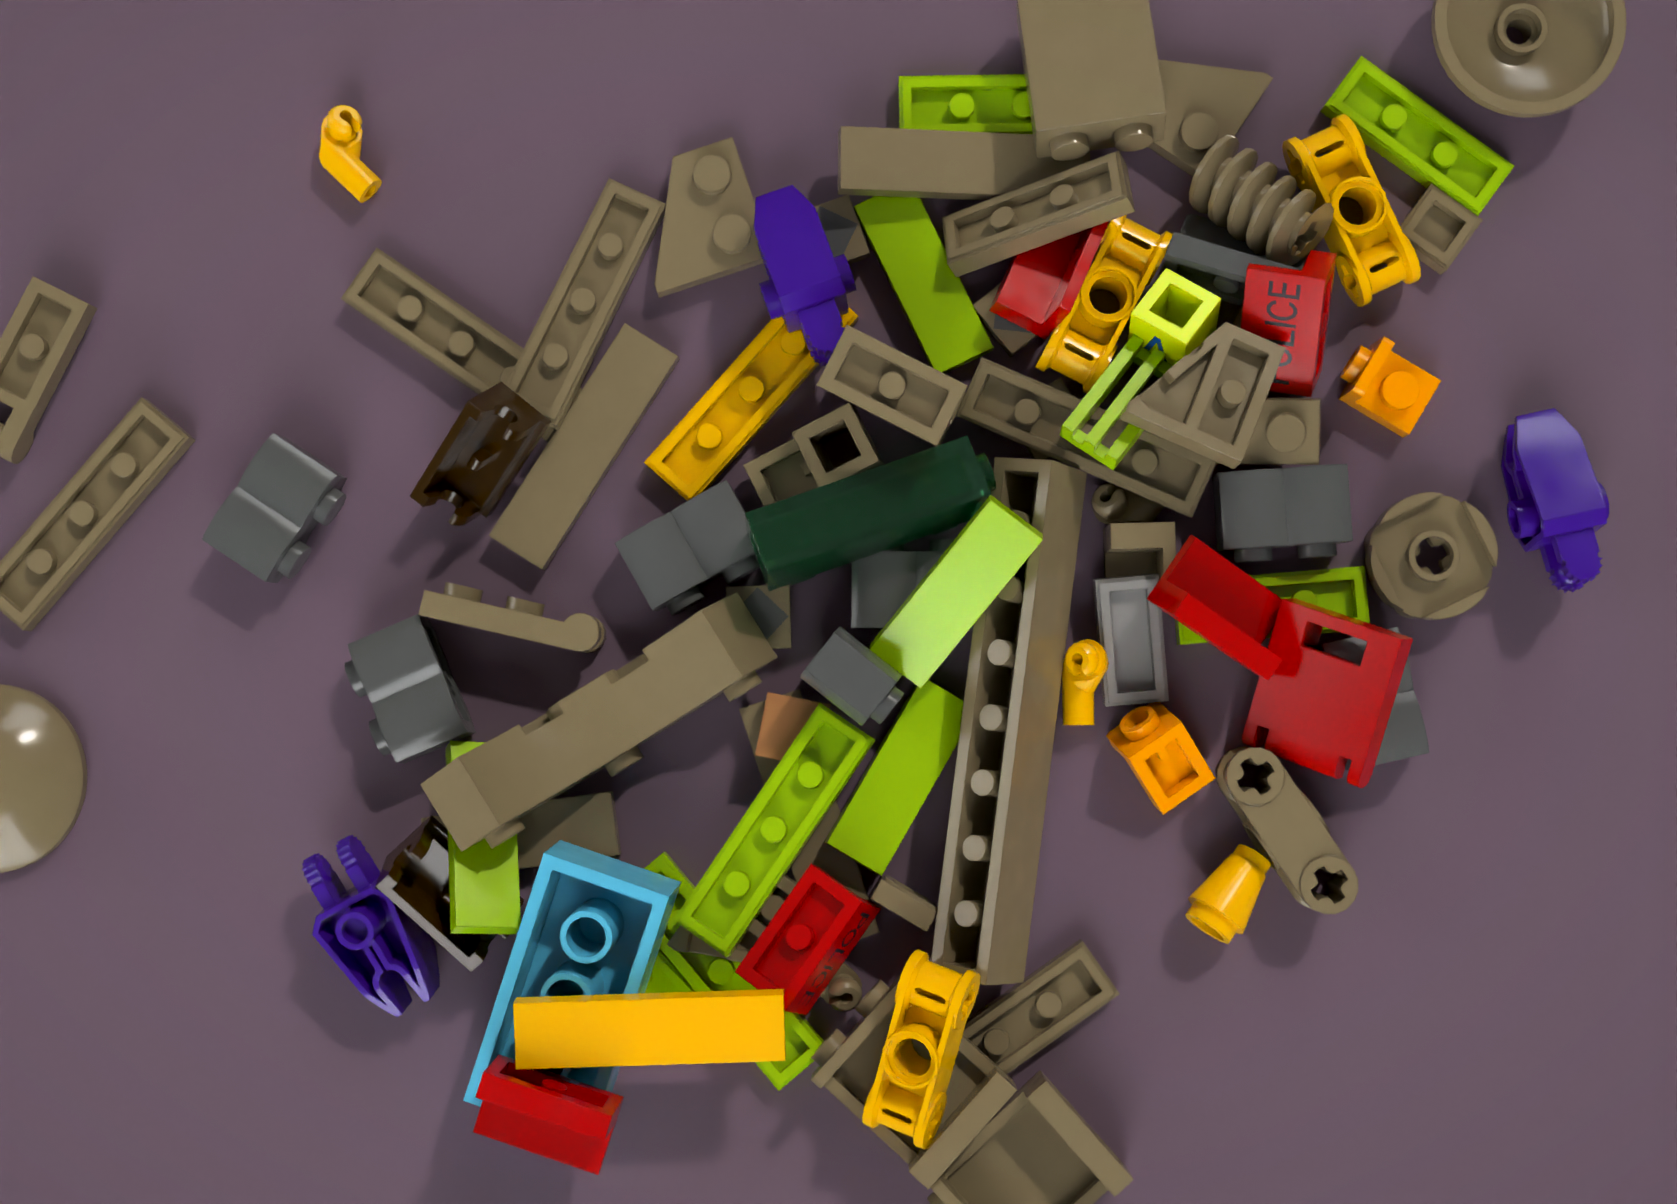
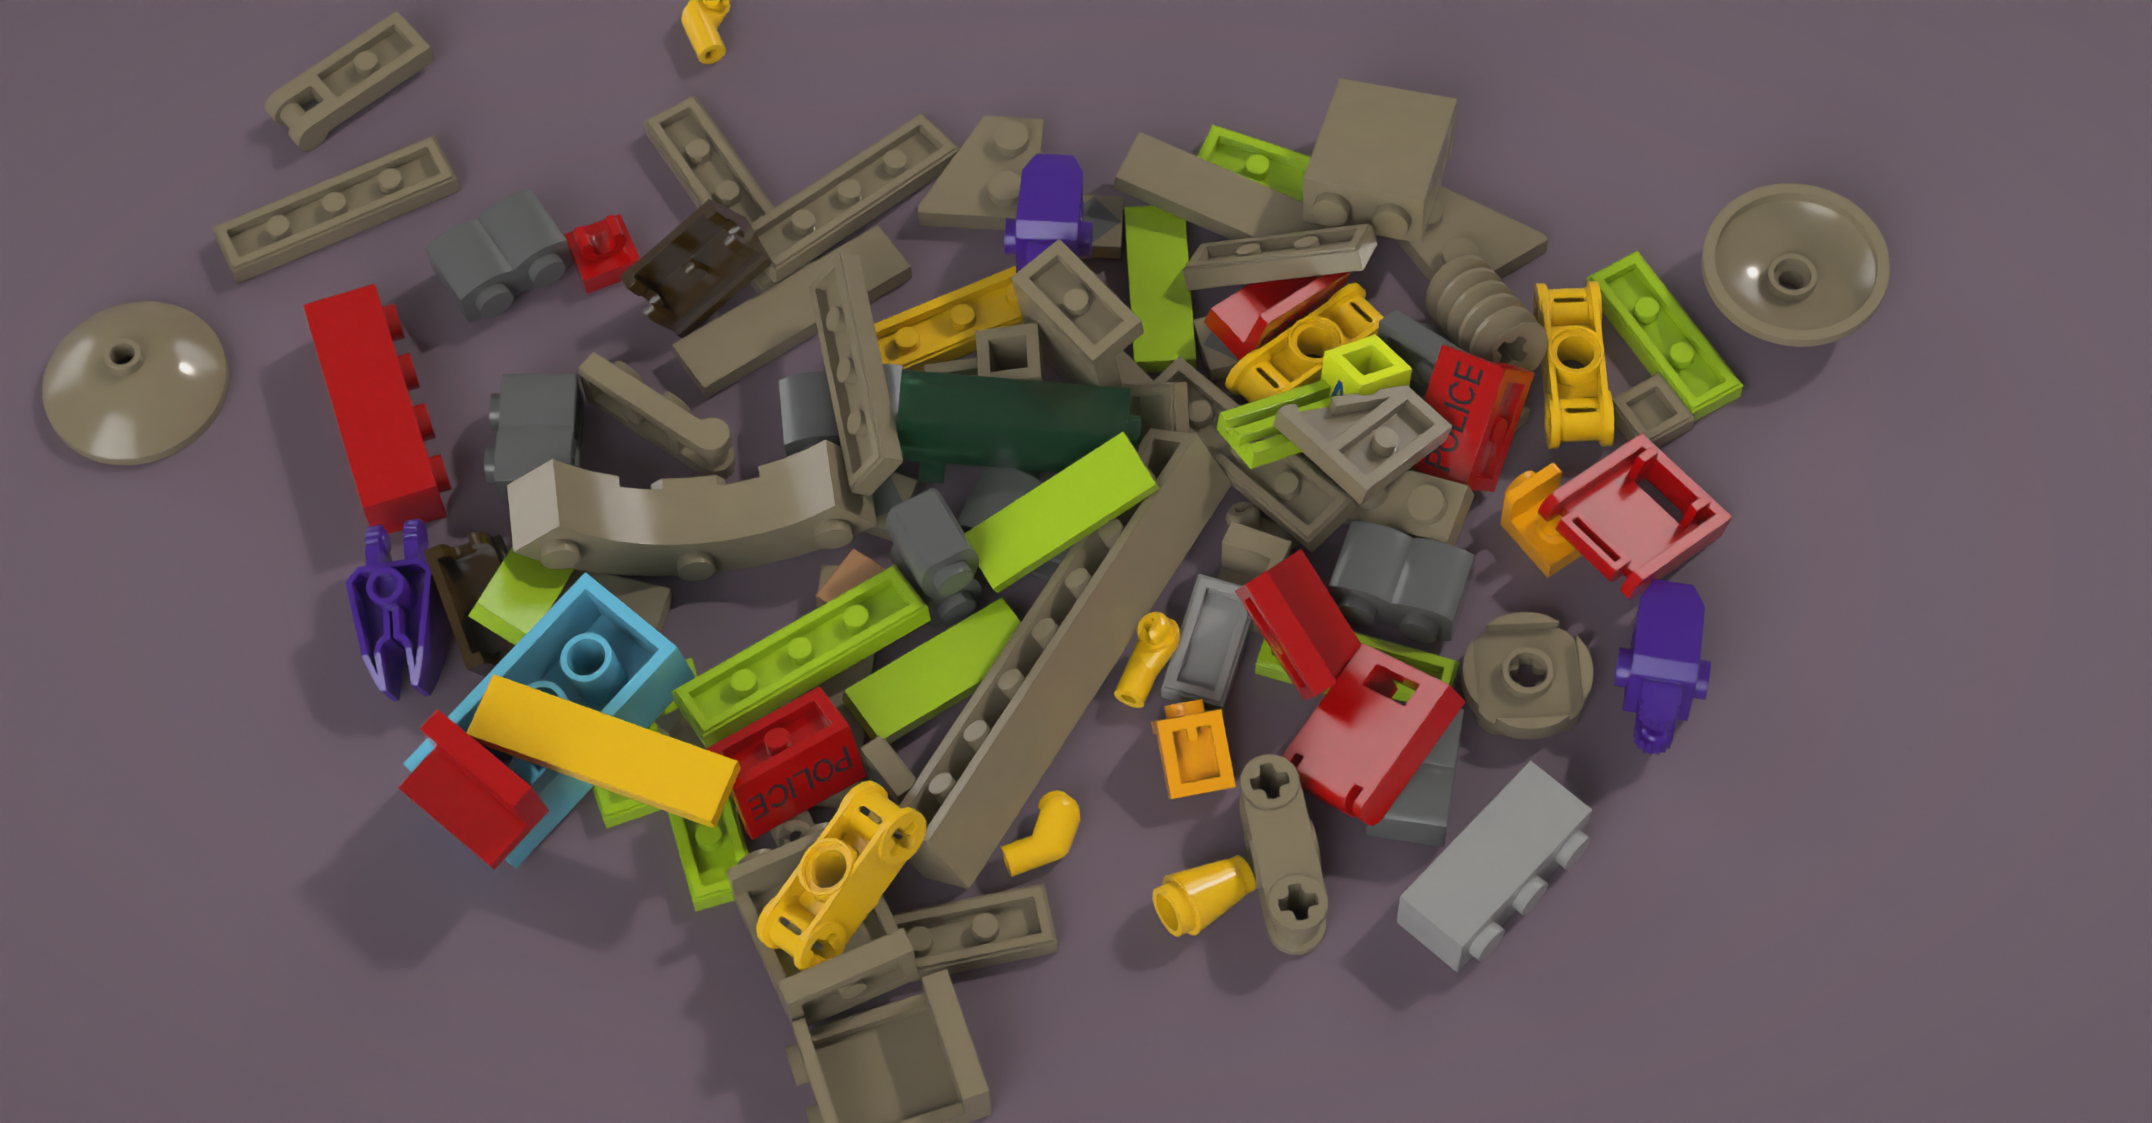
camera: 20 degrees right, 25 degrees down
(239, 722) = (375, 409): none -> red brick
(371, 457) = (602, 252): none -> red tile
(694, 523) = (855, 374): none -> dark tan tile
(991, 427) = (1160, 406): none -> dark tan tile
(1069, 891) = (1050, 838): none -> yellow arm
(1466, 370) = (1623, 527): none -> container
(1480, 762) = (1495, 868): none -> light grey brick

